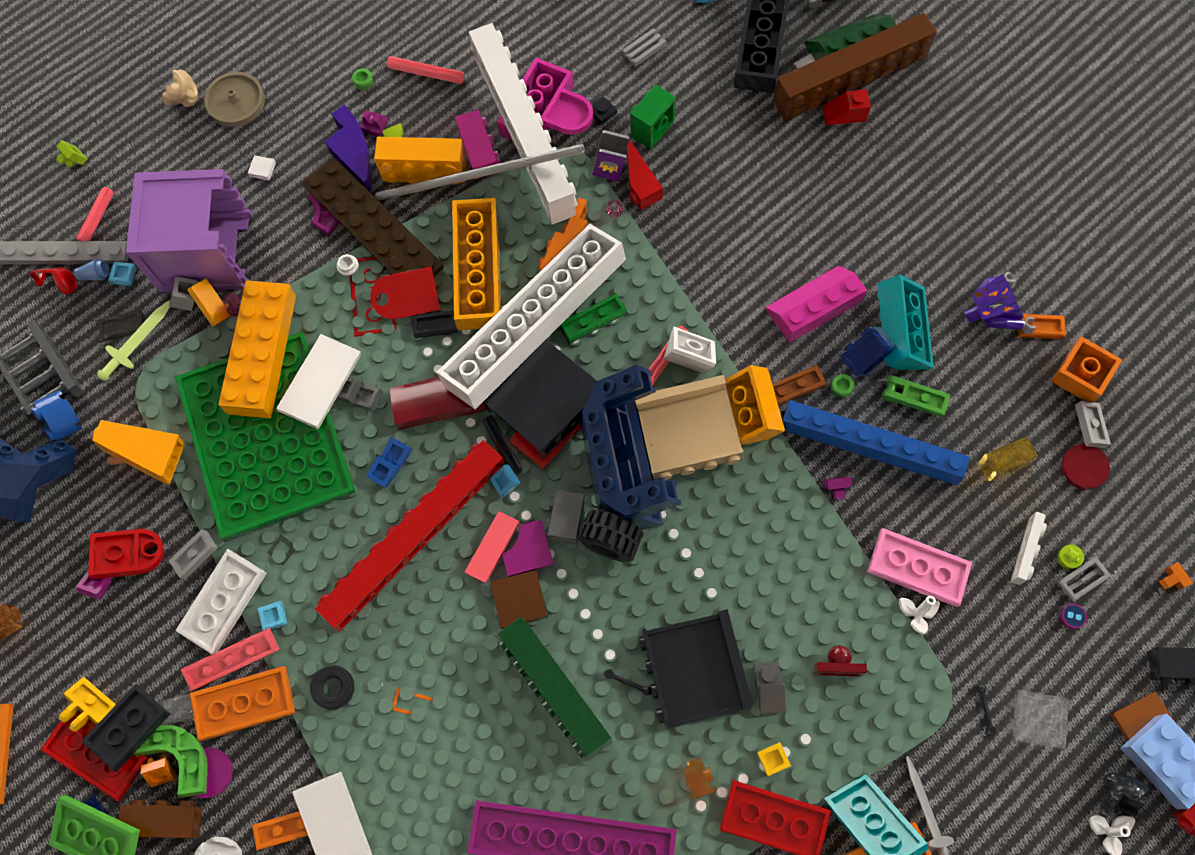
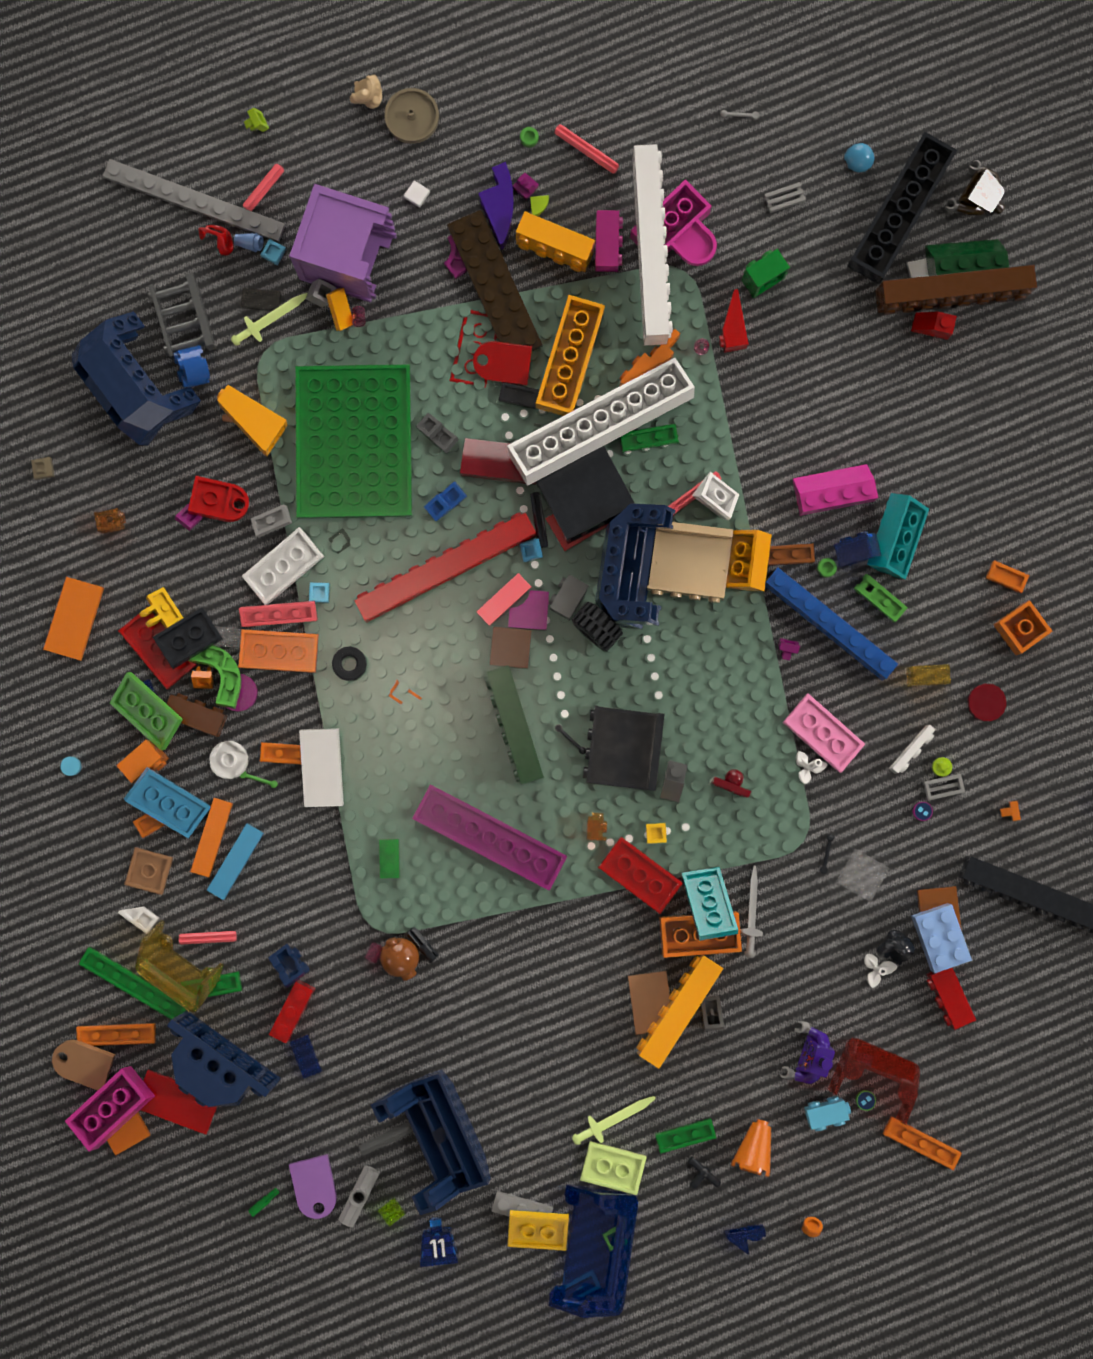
camera: 10 degrees right, 15 degrees up
(257, 349) = (370, 369): light orange brick -> none
(319, 381) = (410, 414): white tile -> none
(347, 265) = (463, 316): white plate -> none
(480, 172) = (599, 281): light grey piece -> none
(603, 110) = (726, 246): black plate -> none
(610, 155) = (714, 296): piece -> none
(998, 305) = (978, 547): dark purple torso -> none
(1092, 424) = (1007, 672): light grey plate -> none

